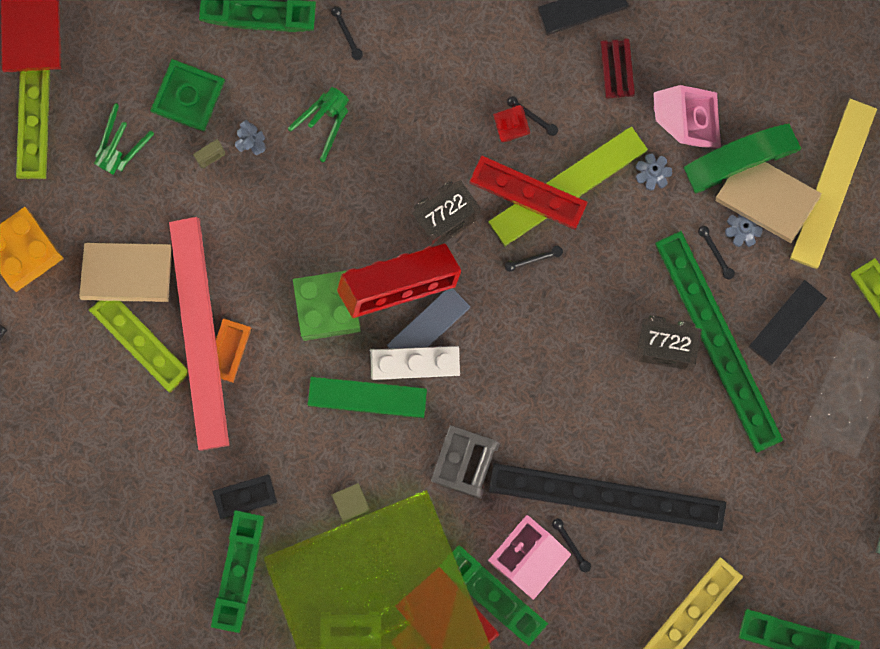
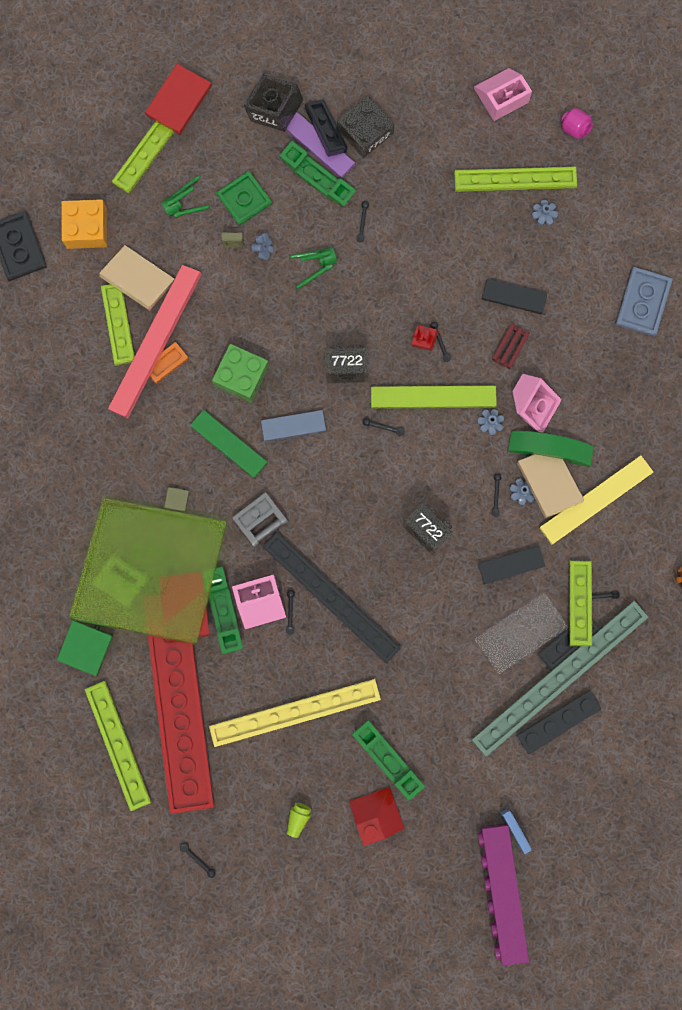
camera: 30 degrees right, 0 degrees up
(238, 571) = (83, 496): green slope -> none
(245, 496) = (116, 454): black plate -> none
(398, 280) = (291, 385): red brick -> none
(415, 362) = (270, 441): white plate -> none
(528, 192) = (406, 384): red plate -> none
(719, 342) = (461, 549): green tile -> none

